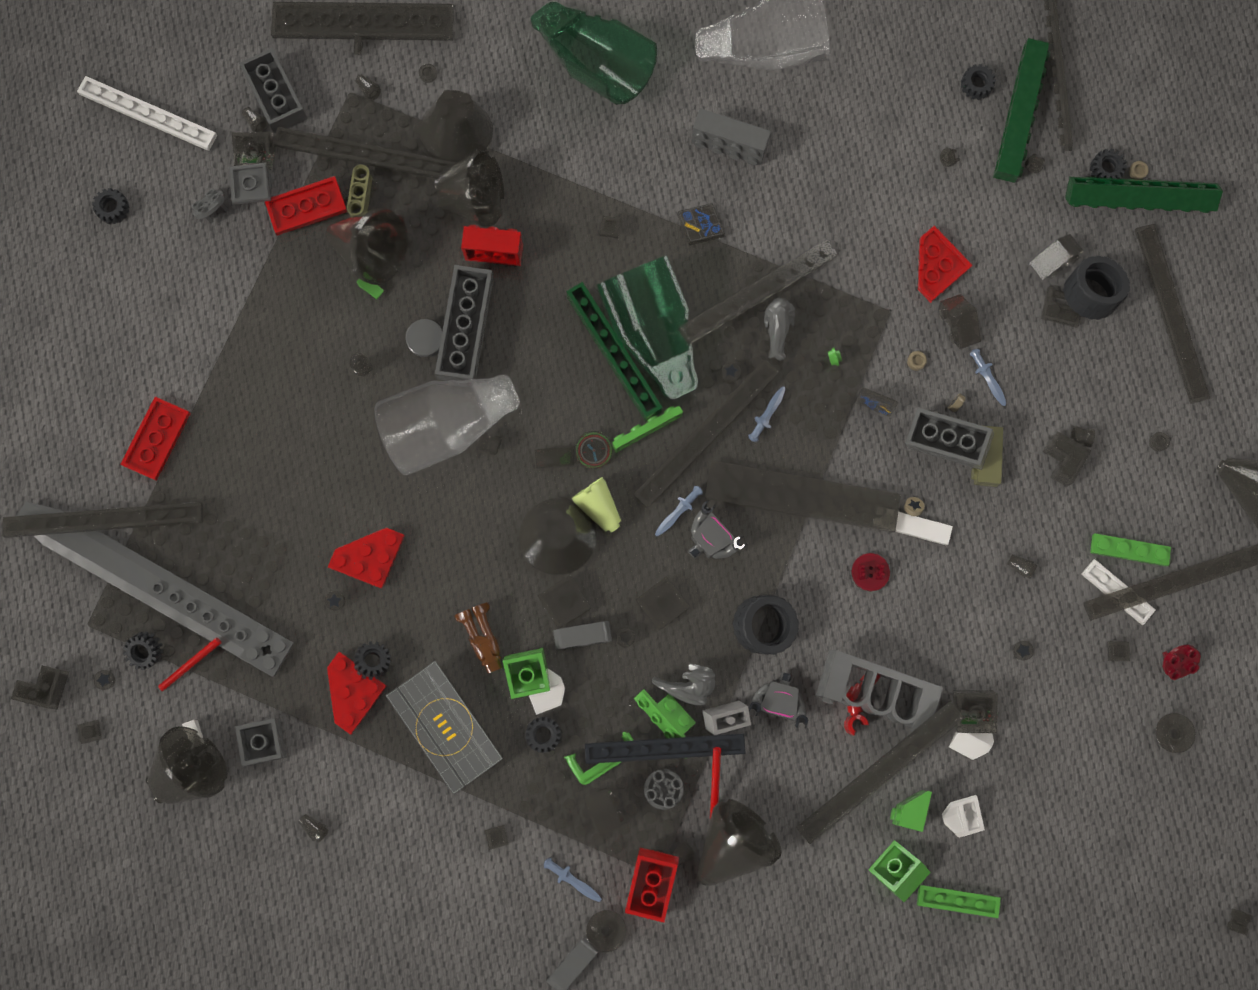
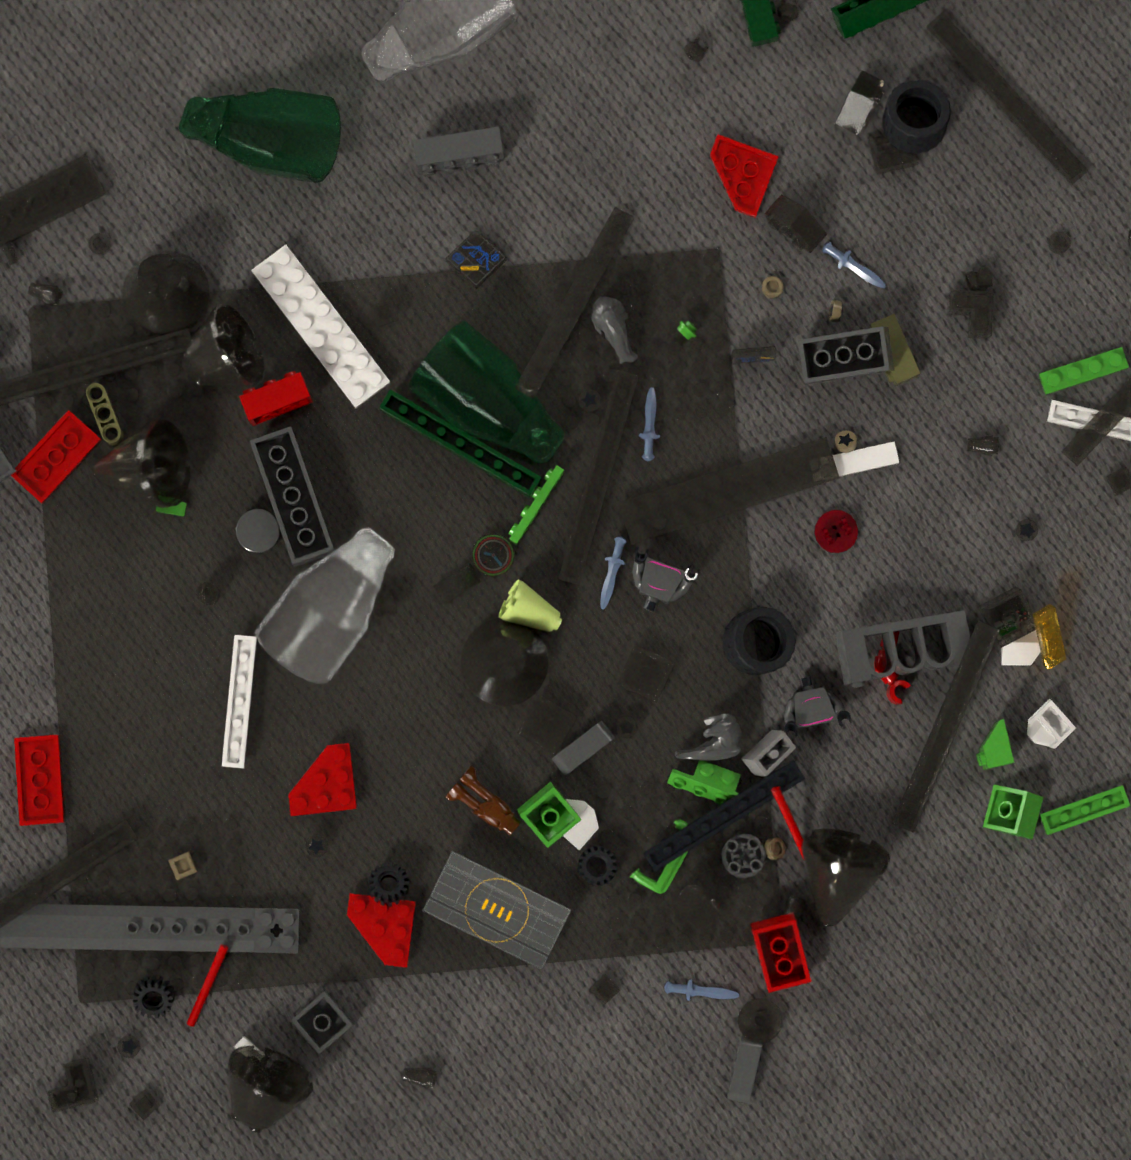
camera: 25 degrees left, 5 degrees up
(224, 561) = (183, 865): none -> dark tan tile
(337, 459) = (239, 701): none -> white plate
(557, 213) = (320, 326): none -> white plate
(691, 797) = (774, 848): none -> dark tan tile
(1001, 744) = (1049, 636): none -> clear yellow plate

